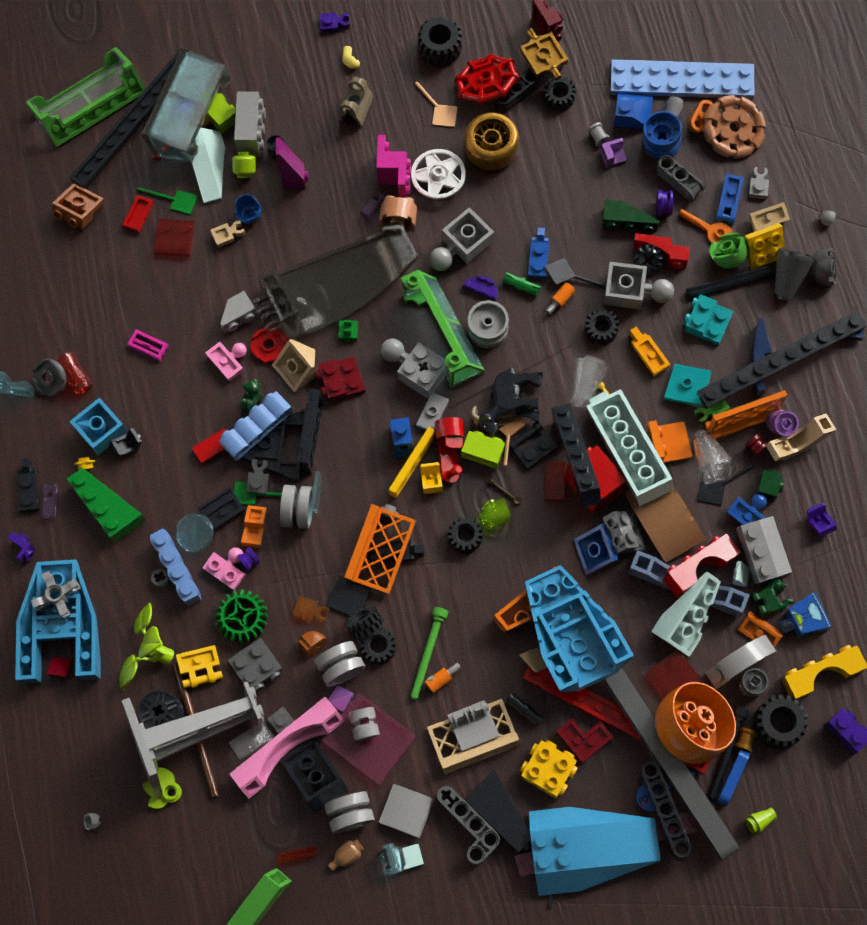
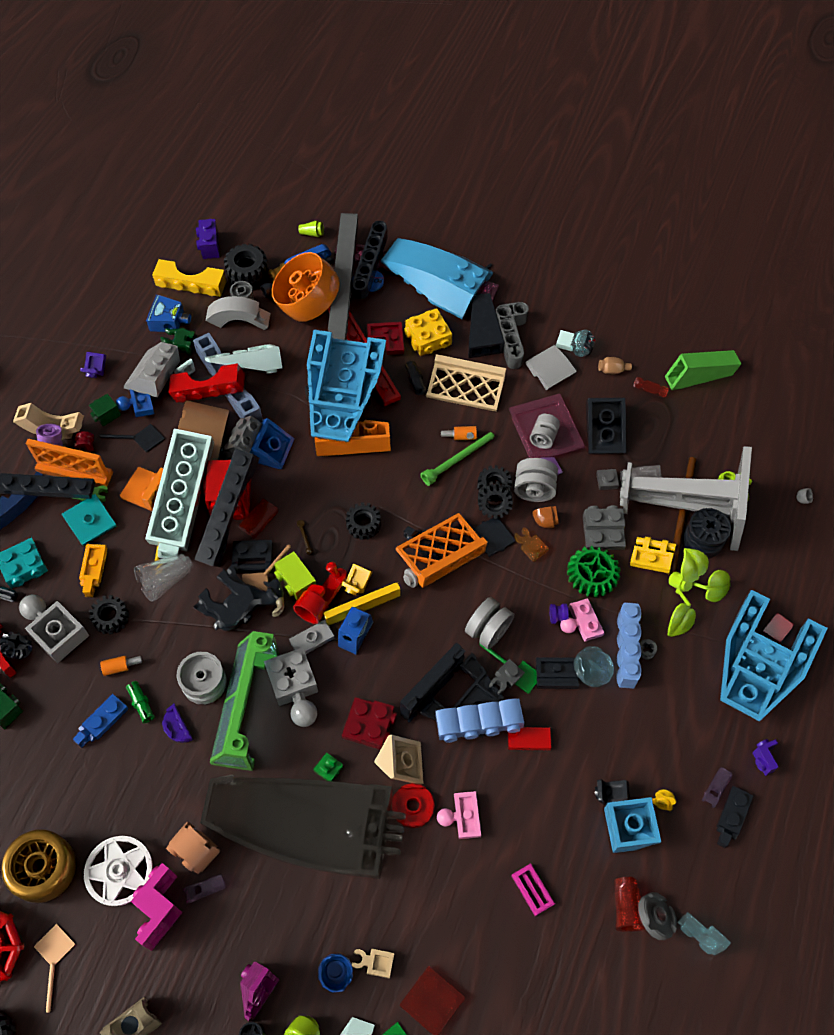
camera: 150 degrees left, 10 degrees down
(41, 602) = (757, 662): light grey pin -> none
(108, 508) = (664, 737): green wedge -> none
(237, 311) = (421, 859): light grey slope -> none
(251, 396) = (464, 756): dark green animal -> none
(254, 526) = (536, 640): orange slope -> none
(316, 492) = (459, 631): clear light blue piece -> none
(317, 721) = (653, 450): bright pink arch -> none
(349, 812) = (595, 379): light grey wheel -> none
(465, 237) = (158, 788): light grey brick -> none
(473, 725) = (461, 386): light grey hinge -> none
(495, 512) = (326, 520): clear neon green brick -> none
(534, 659) = (380, 400): tan piece -> none
(561, 272) = (97, 687): piece -> none
(672, 673) = (292, 337): clear red plate -> none
(711, 458) = (126, 452): clear cone -> none
(756, 627) = (203, 327): orange slope -> none

